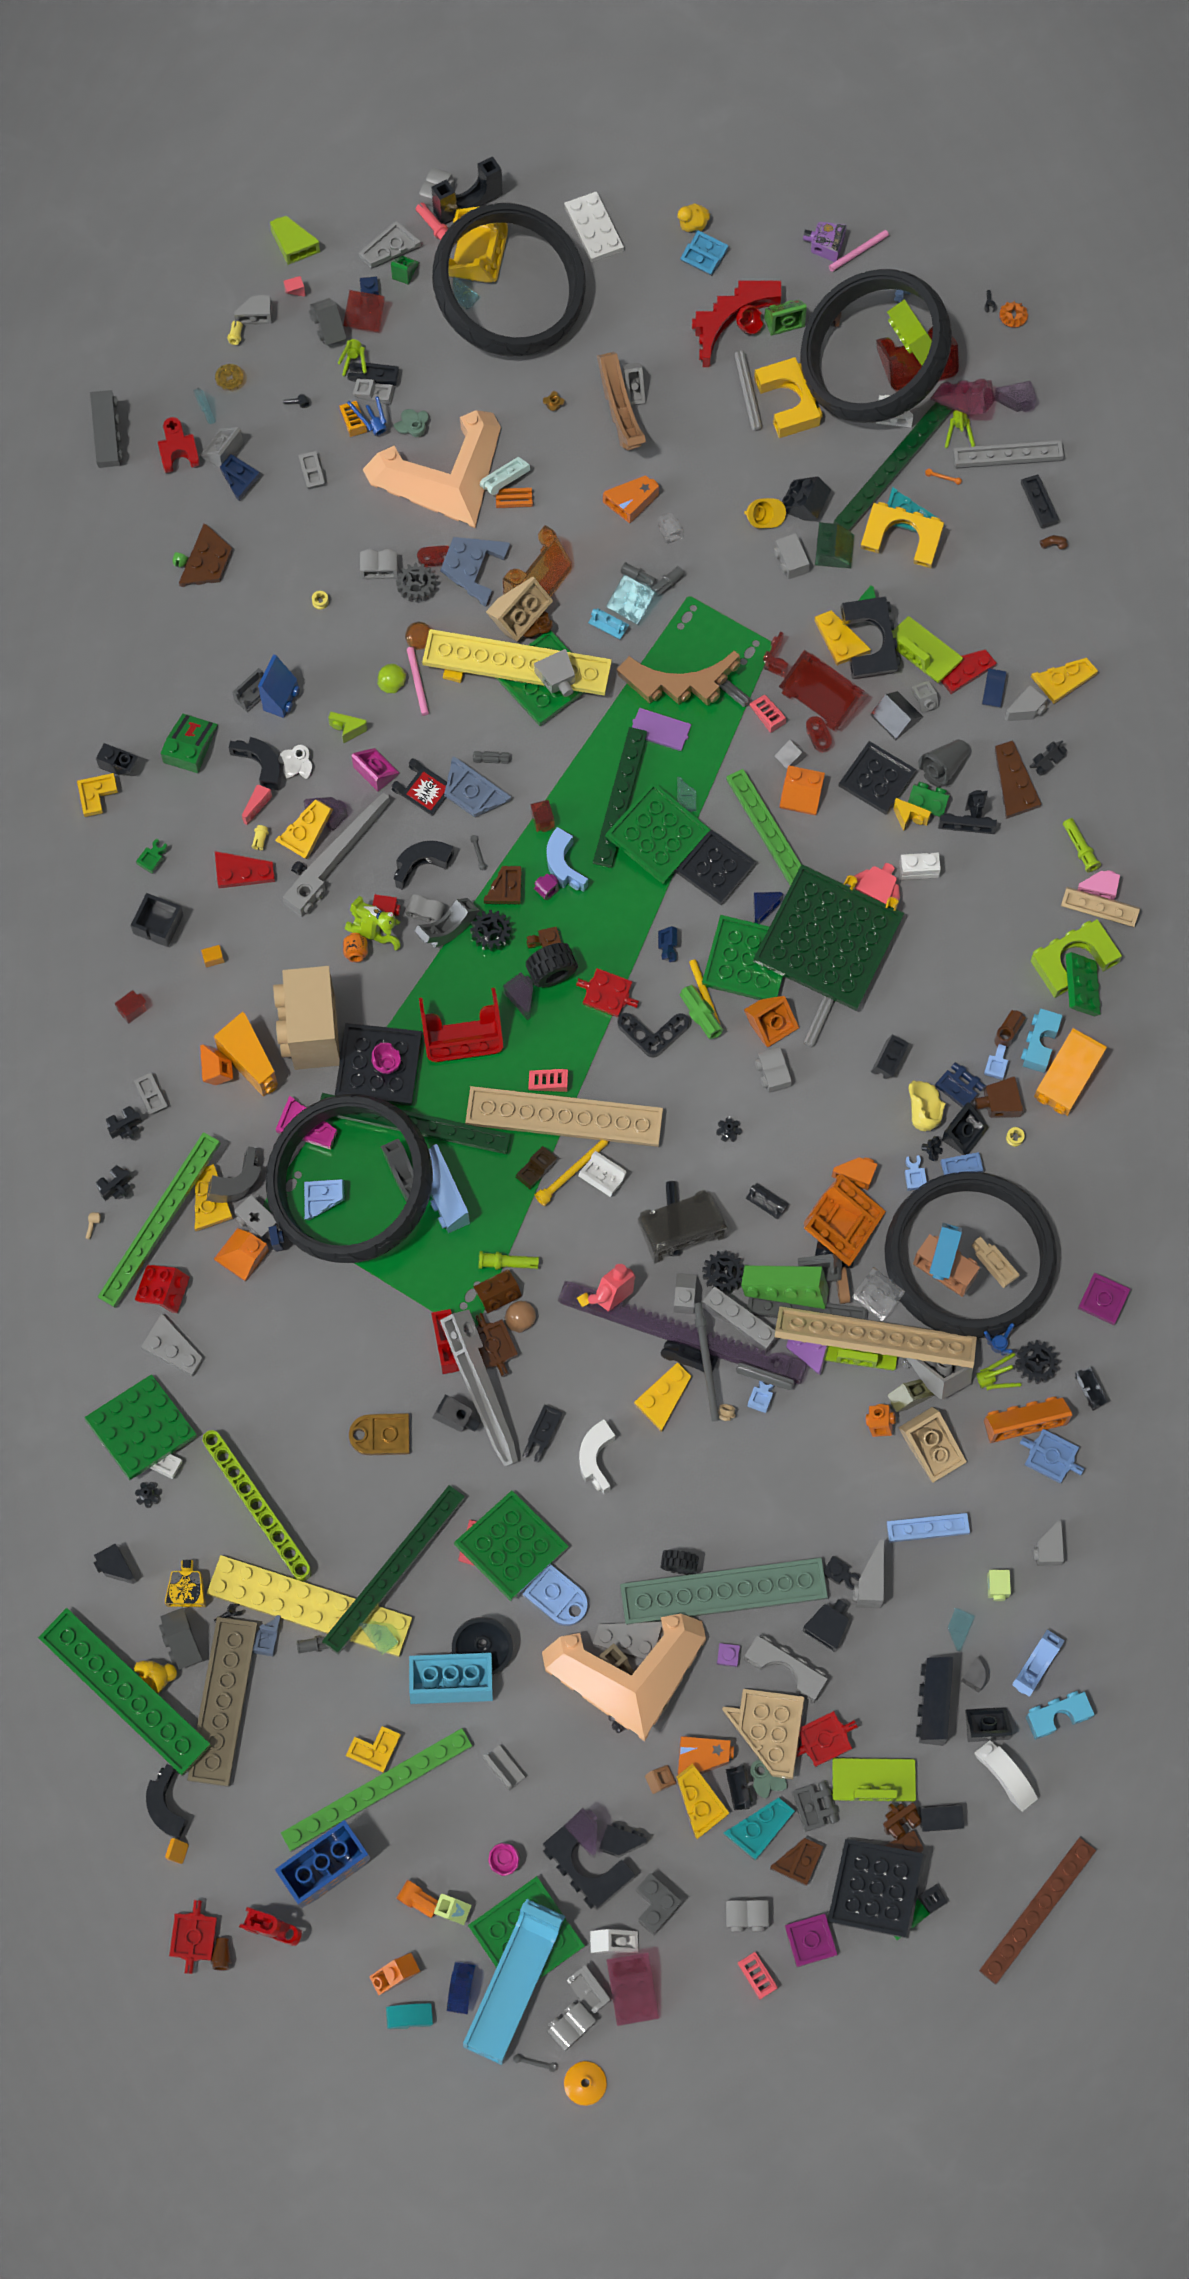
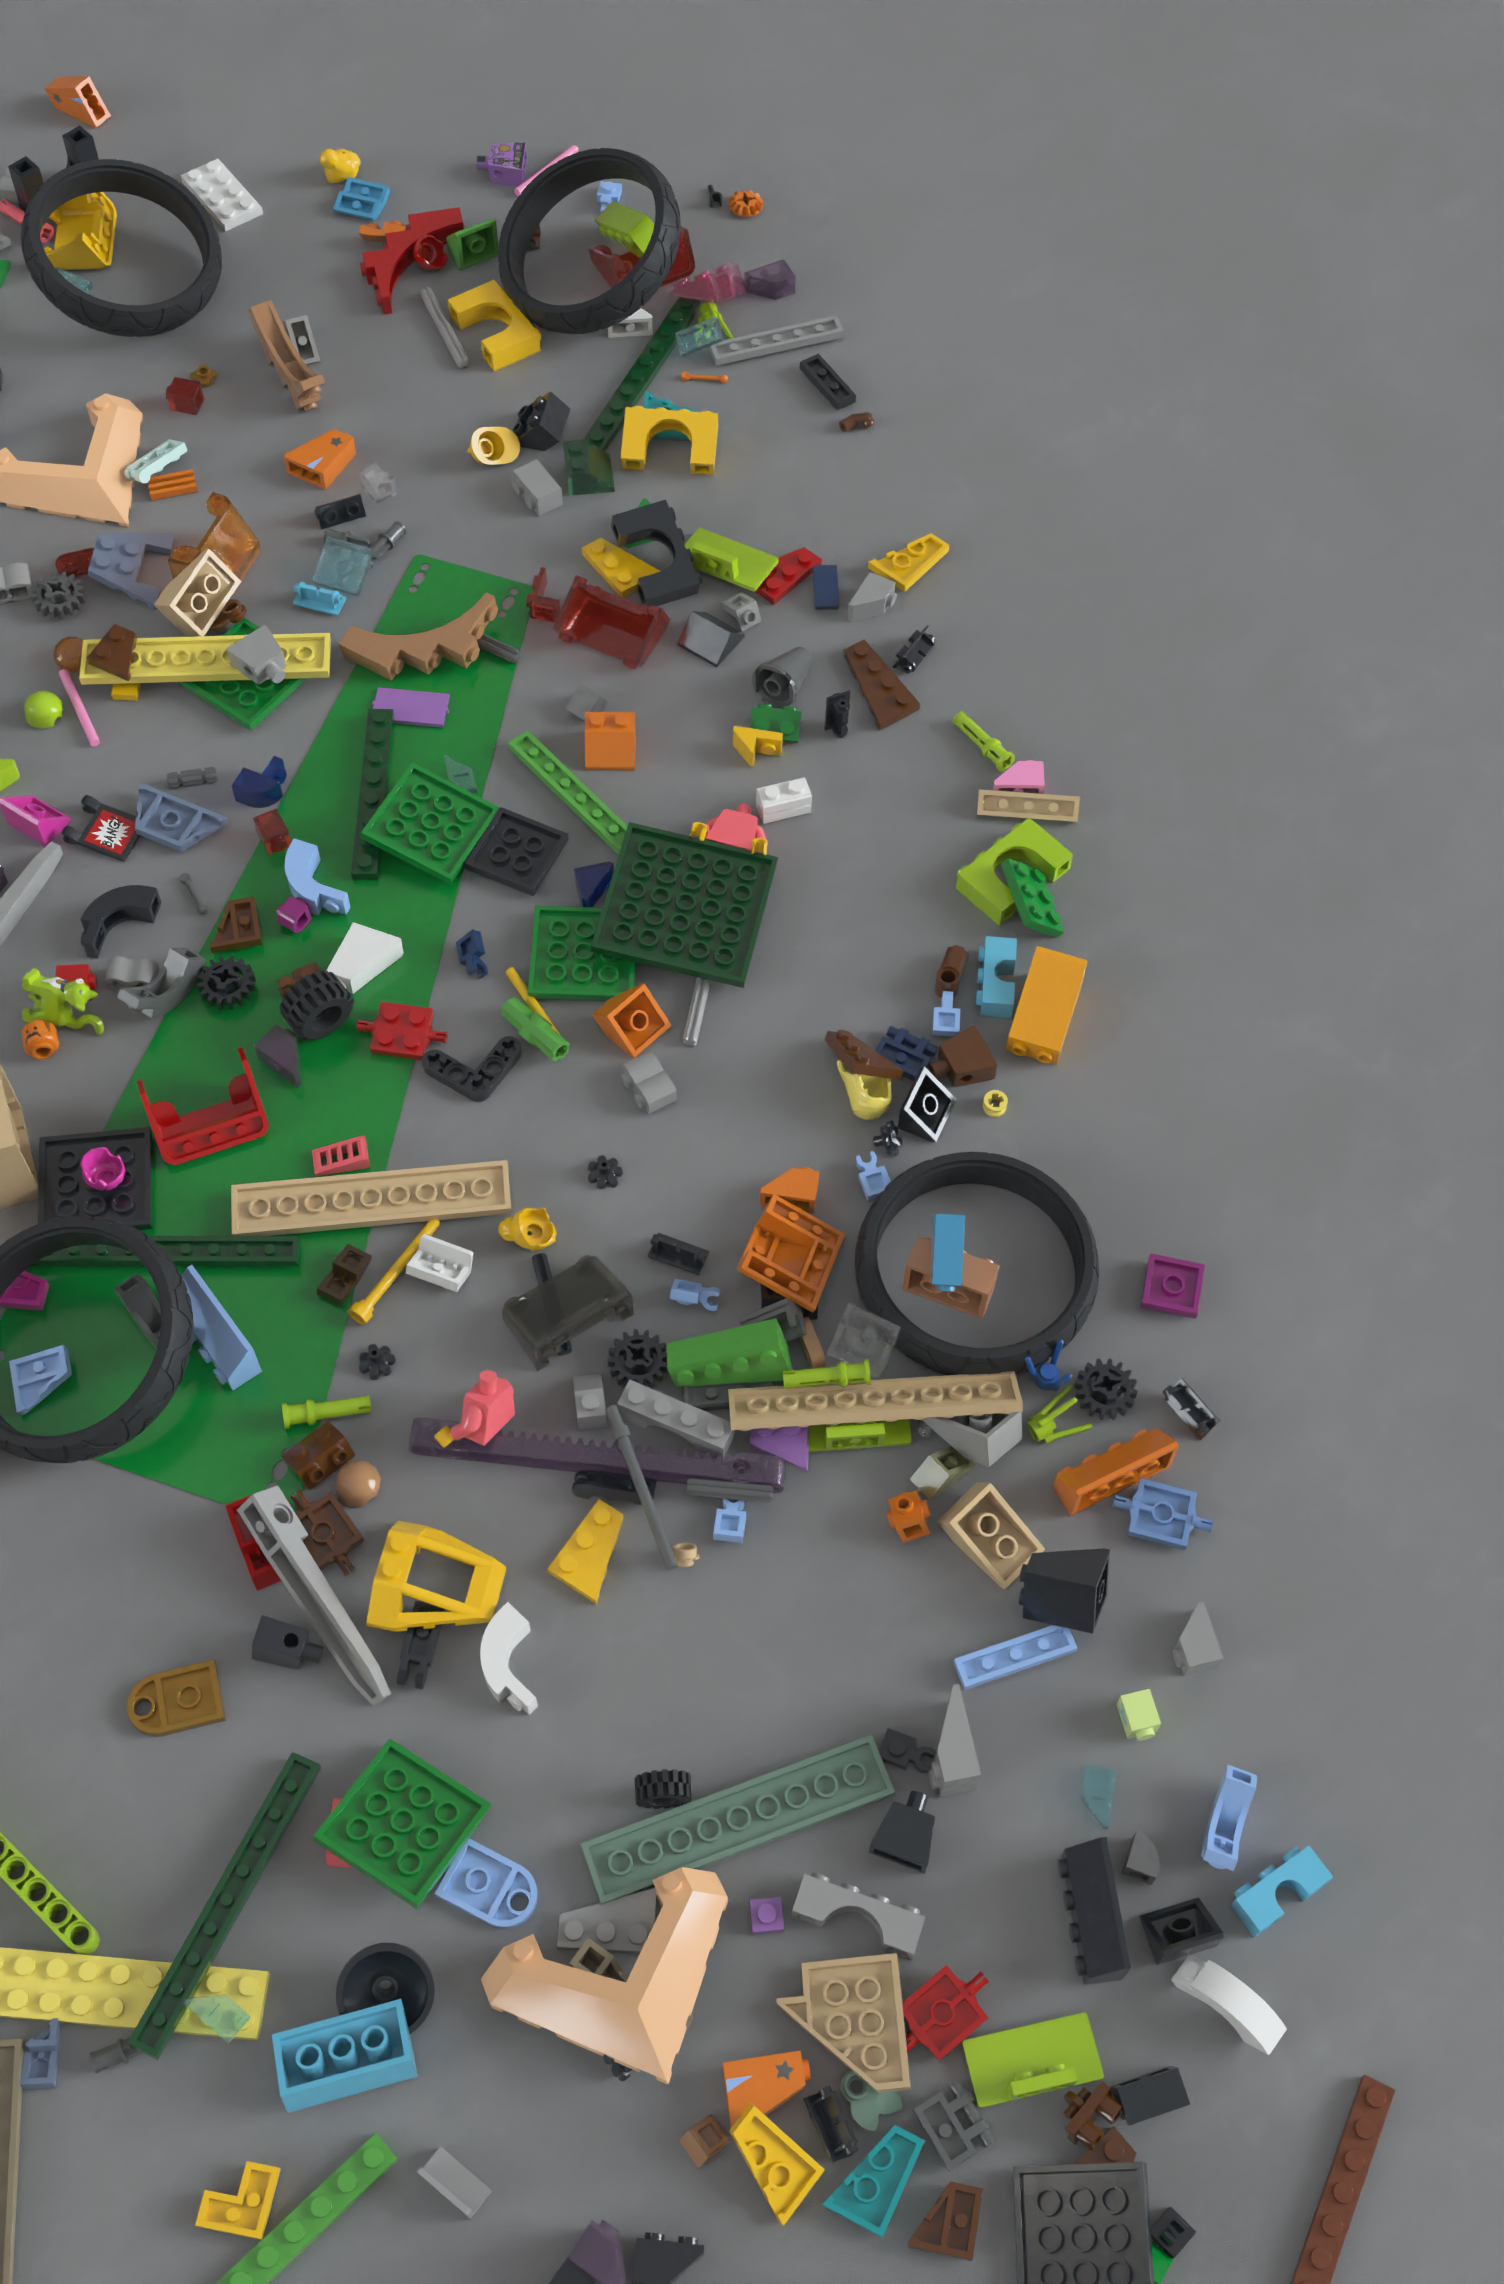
camera: 15 degrees left, 10 degrees down
(412, 422) = (28, 426): sand green plate -> none
(451, 646) = (115, 652): none -> reddish brown wing
(493, 112) = (78, 99): none -> orange slope
(530, 1392) = (393, 1571): none -> yellow windscreen
(536, 419) = (185, 396): none -> clear red brick
(540, 778) = (260, 789): none -> clear blue brick
(547, 1233) = (376, 1361): none -> black plant
(590, 930) = (364, 956): none -> white slope
(638, 548) = (340, 511): none -> black hinge
(658, 1160) = (525, 1221): none -> yellow piece
(724, 290) = (373, 233): none -> orange slope
(770, 1231) = (692, 1292): none -> light blue plate
(775, 724) = (555, 676): coral slope -> none
(818, 735) = (620, 678): clear red plate -> none
(857, 1314) = (841, 1374): none -> lime pin
(877, 777) = (703, 711): black plate -> none
(890, 1056) = (802, 1035): black hinge -> none
(926, 1084) = (860, 1057): none -> reddish brown wing
(946, 441) = (699, 336): none -> clear light blue plate
(966, 1163) = (932, 1148): medium blue plate -> none
(967, 823) = (832, 742): black plate -> none
(972, 1492) = (1065, 1587): none -> black slope
(995, 1262) = (1015, 1262): tan hinge -> none

